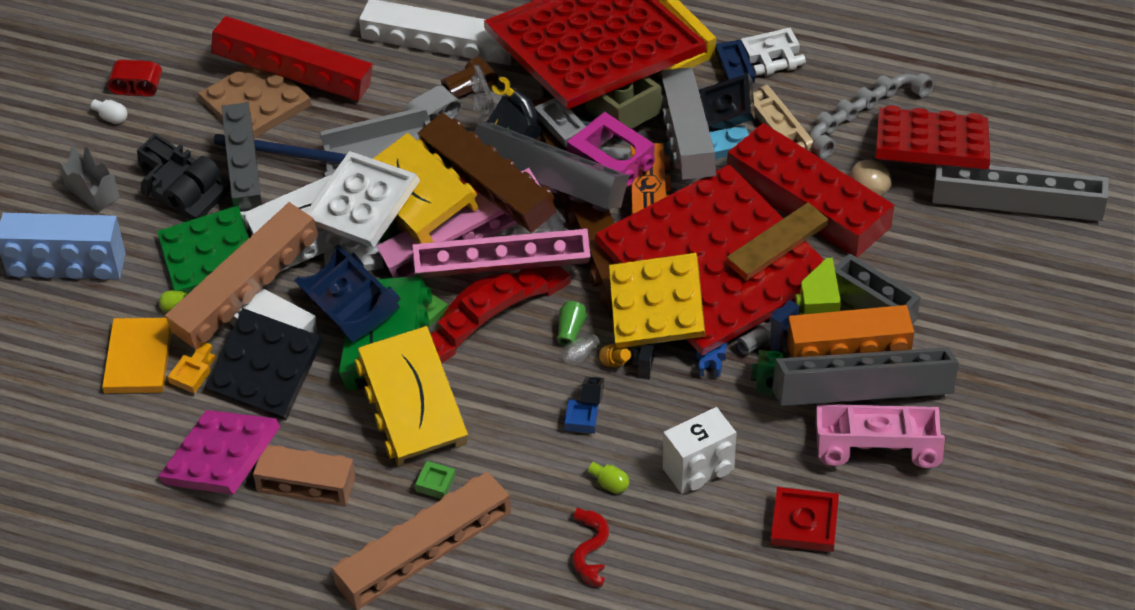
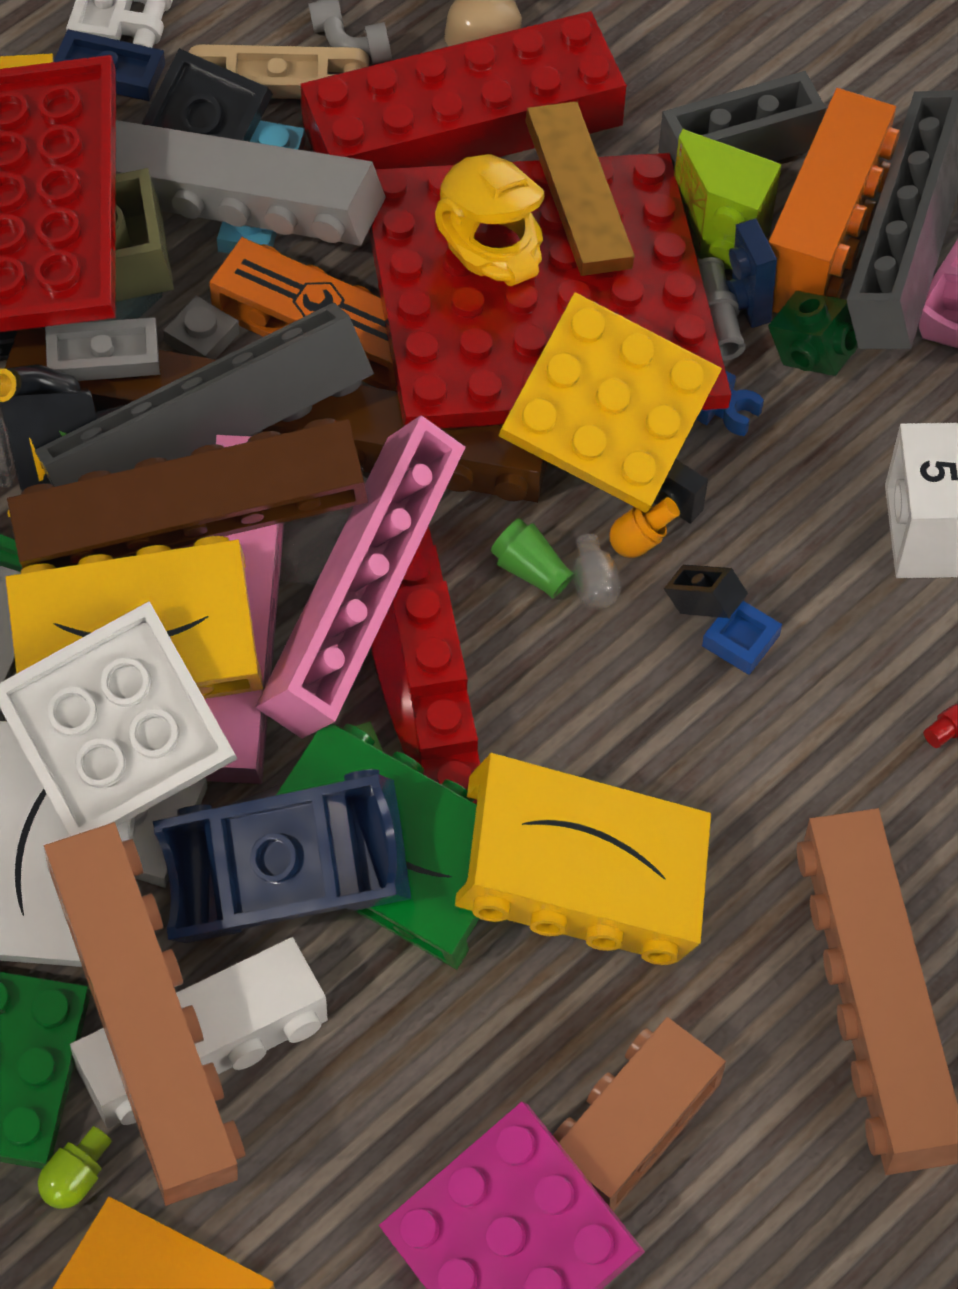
camera: 65 degrees left, 10 degrees up
(193, 370) = (270, 1213): light orange plate -> none
(264, 363) = (343, 1074): black plate -> none
(435, 480) = (757, 912): bright green plate -> none
(599, 132) = (195, 346): dark pink panel -> none
(610, 477) = (888, 655): lime cylinder -> none
(727, 198) = (491, 192): none -> yellow helmet

